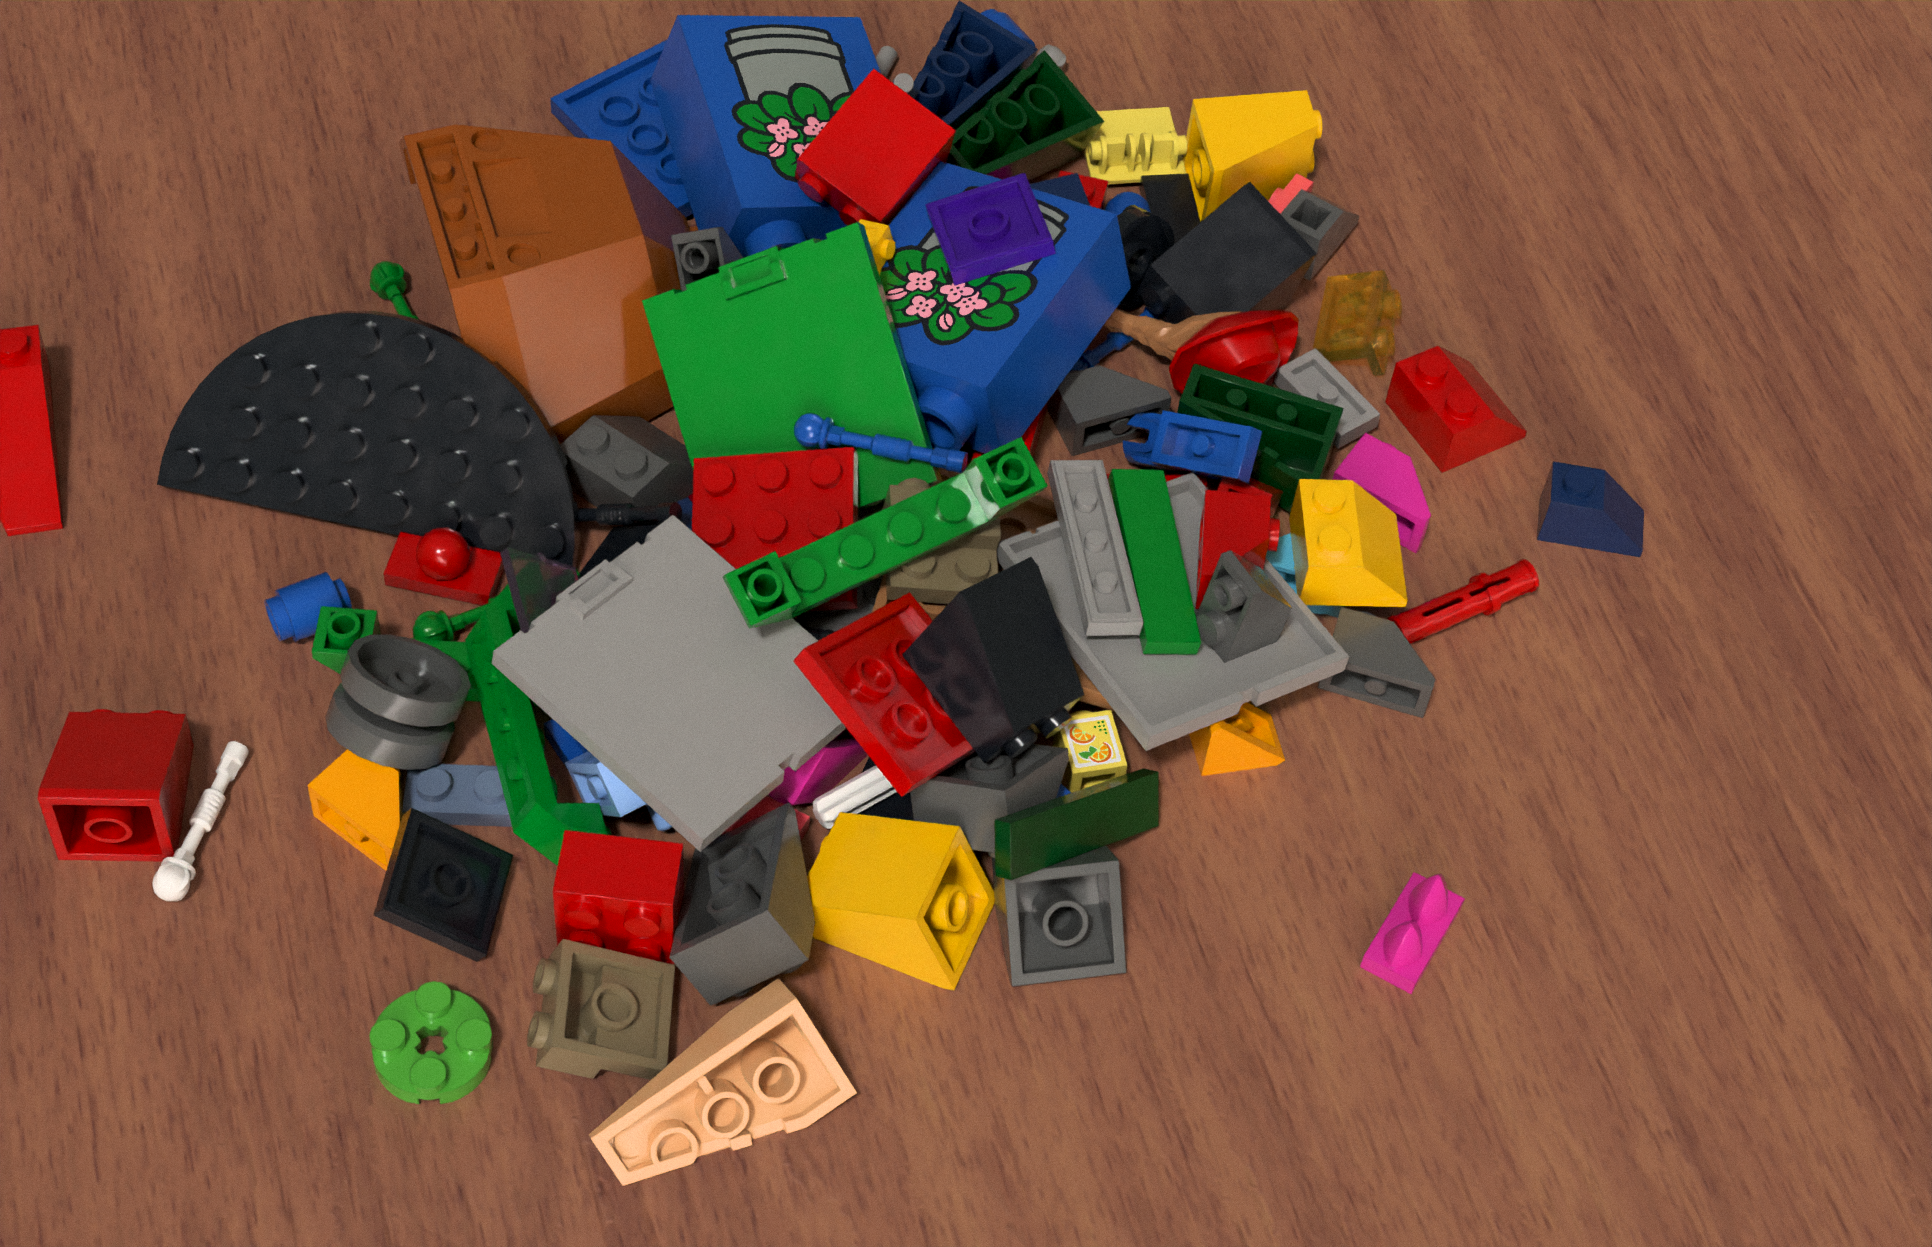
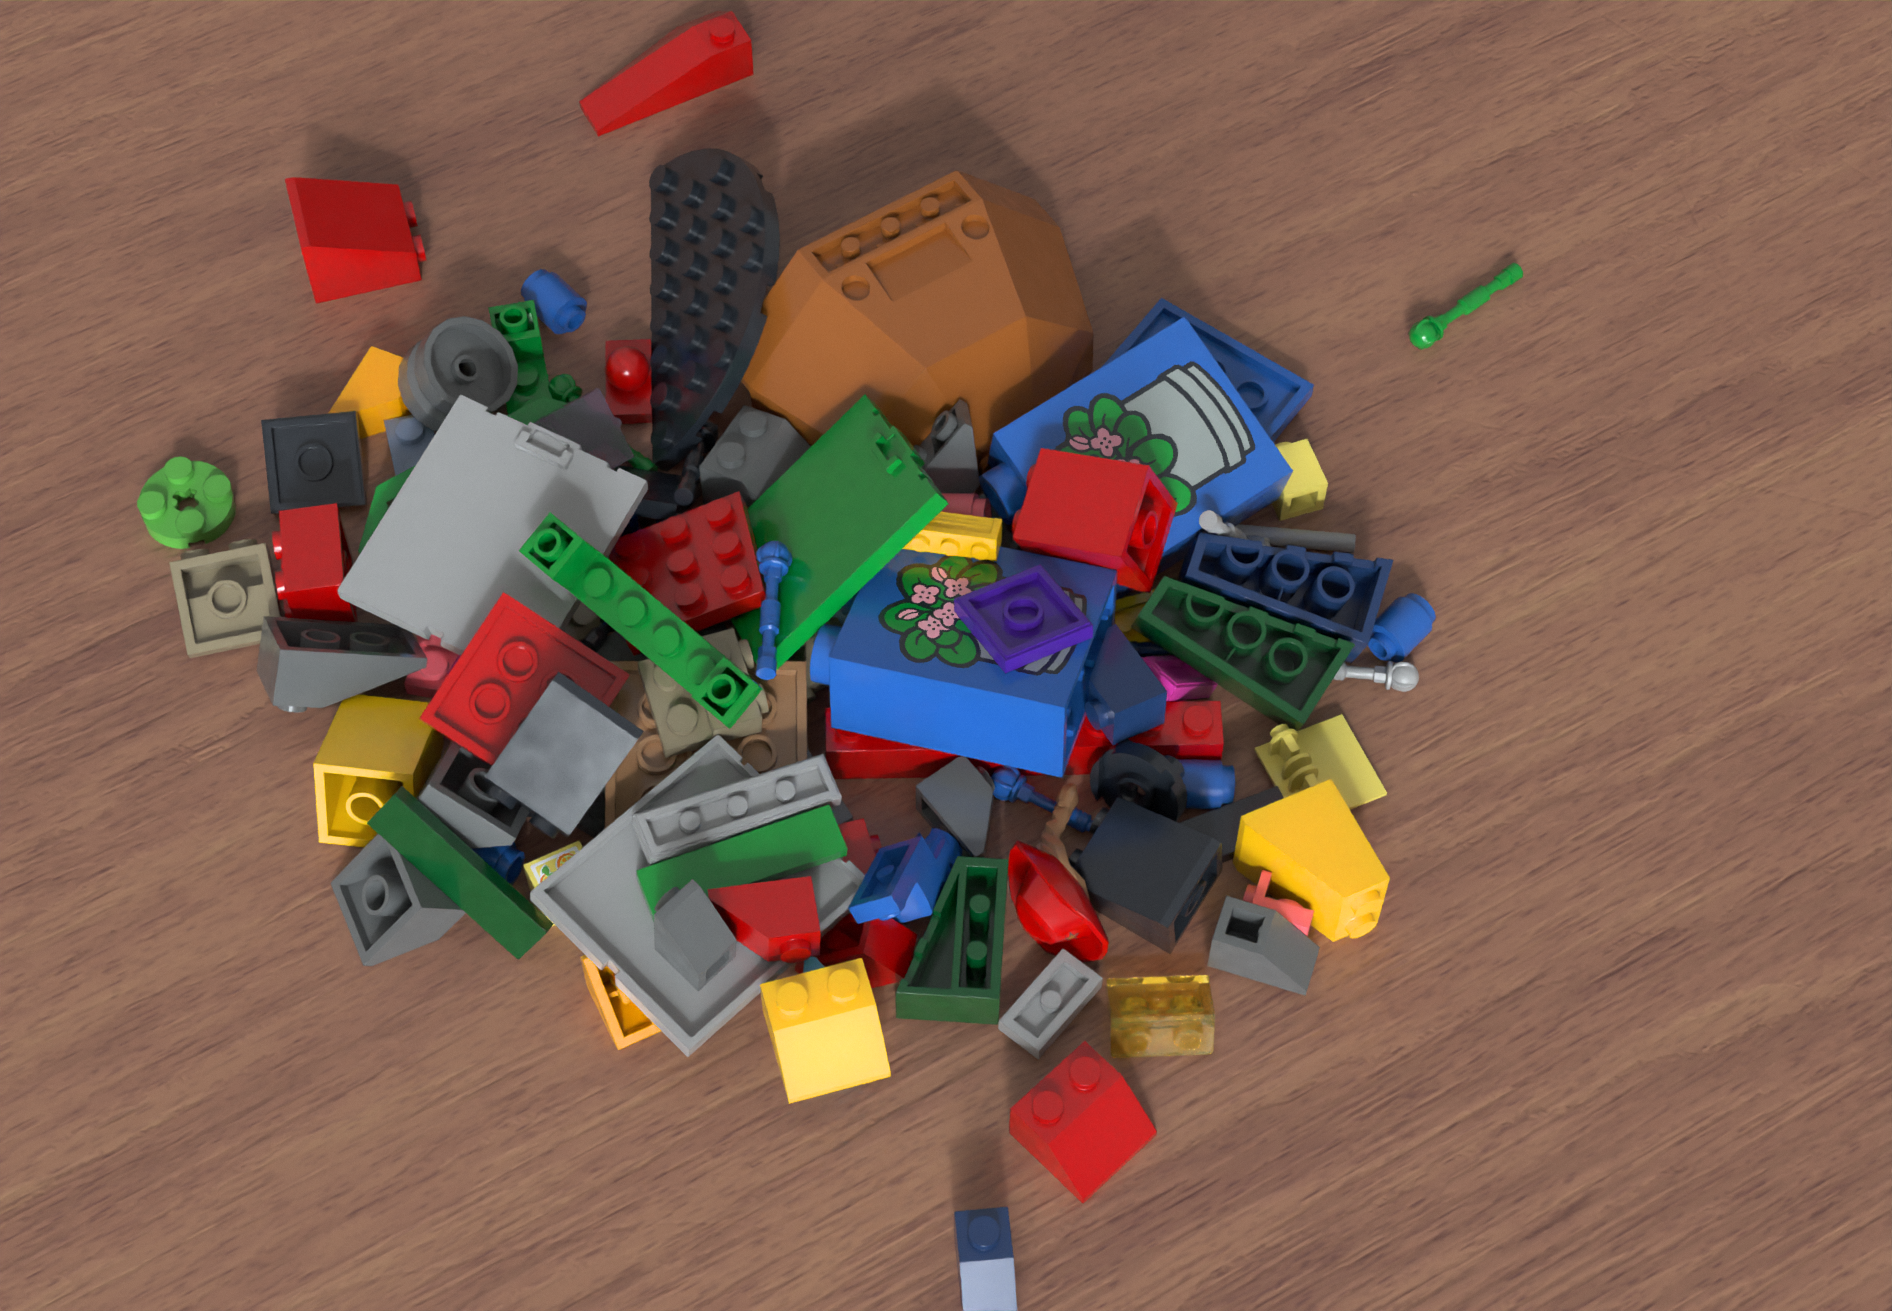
camera: 80 degrees right, 5 degrees up
(176, 872) = (291, 303): white piece -> none
(737, 1082) = (190, 705): light nougat wedge -> none
(1380, 665) = (737, 1096): dark grey slope -> none
(1392, 481) = (947, 1070): dark pink slope -> none
(1412, 931) = (457, 1188): dark pink tile -> none
(1481, 595) = (877, 1209): red pin -> none

